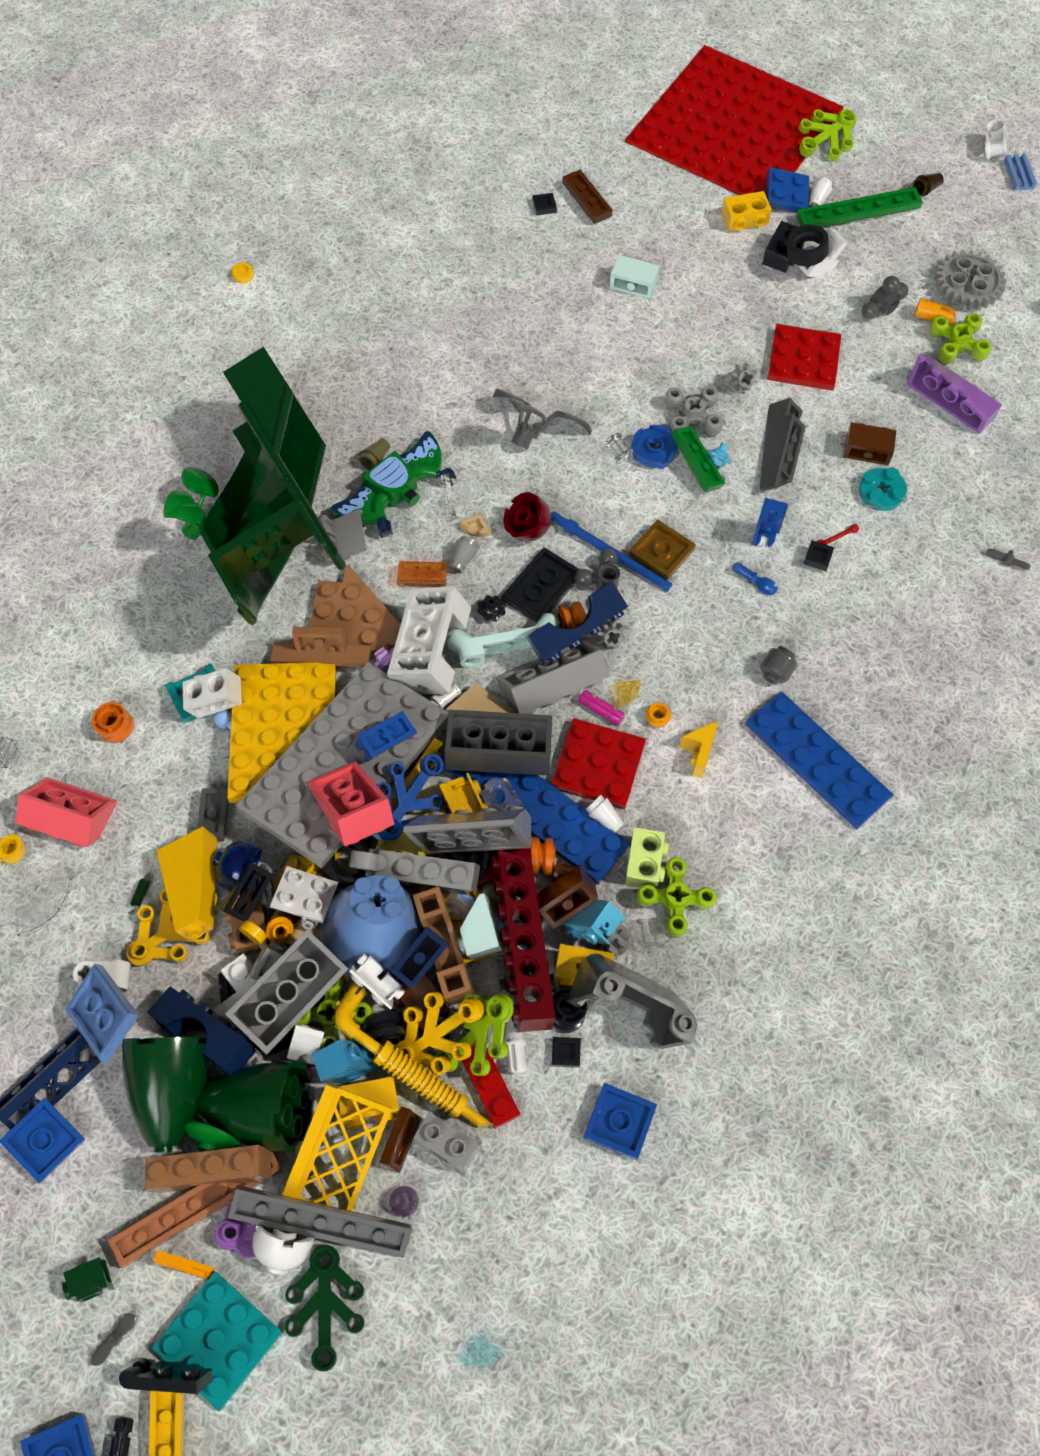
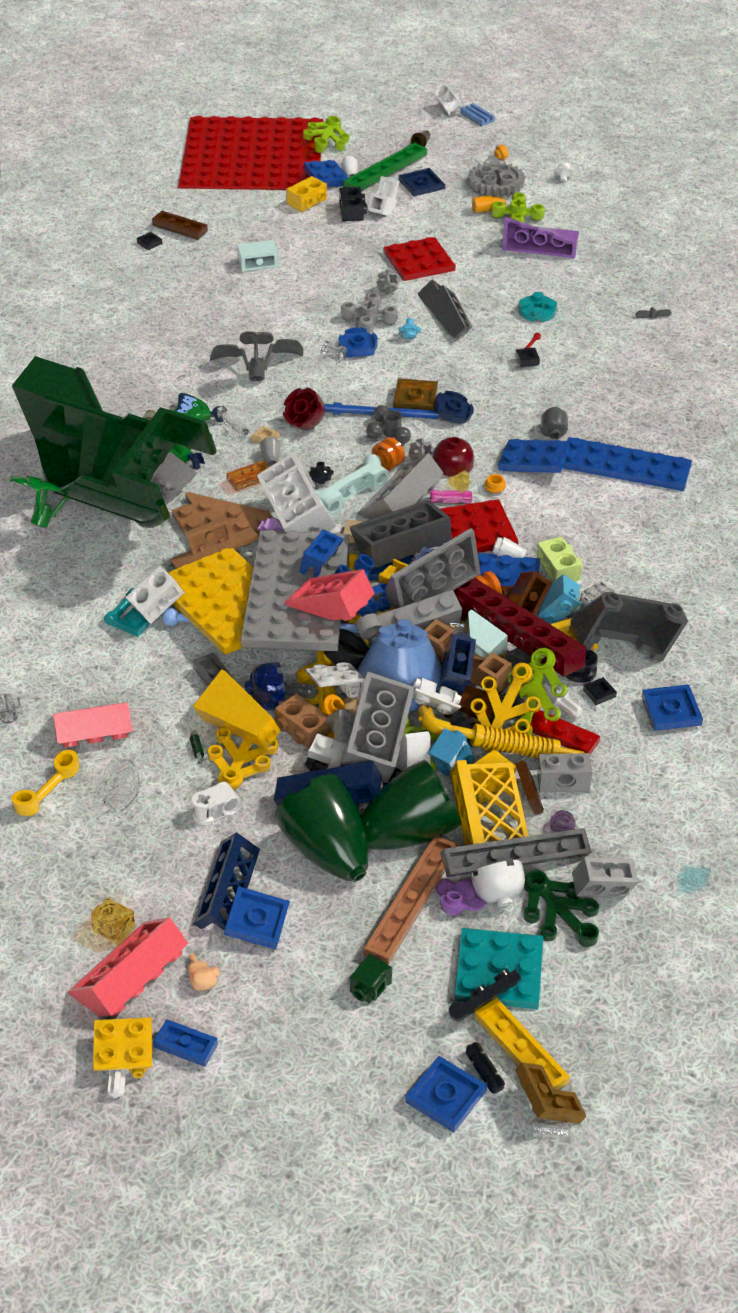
camera: 30 degrees left, 20 degrees down
(101, 1012) = (243, 805): medium blue tile -> none
(106, 715) = (82, 654): orange wheel -> none
(113, 1339) = (420, 1008): dark grey piece -> none
(183, 1264) = (432, 935): light orange tile -> none
(210, 1137) = (391, 845): green dish -> none
(215, 1166) = (382, 879): medium nougat arch -> none
(226, 907) = (289, 686): black tile -> none
(253, 932) = (317, 711): yellow tile -> none
(380, 1308) = (604, 877): none -> light grey brick
(541, 585) = (345, 448): black tile -> none
(602, 605) = (388, 460): dark blue arch -> none
(640, 657) = (454, 456): none -> dark red cylinder
(665, 897) = (600, 569): lime gear -> none
(688, 587) = (453, 407): none -> dark blue tile
(698, 458) = (396, 335): green plate -> none
(700, 742) = (541, 485): yellow slope -> none
(724, 700) = (534, 456): none -> blue plate
(764, 584) = (503, 387): blue piece -> none
(769, 521) = (479, 346): blue hinge -> none
(807, 233) = (372, 183): black tyre -> none
(869, 443) = (508, 285): reddish brown brick -> none
(885, 298) = (450, 207): dark grey piece -> none
(886, 246) = (421, 182): none -> dark blue tile
(1005, 242) = (501, 152): none -> light orange plate

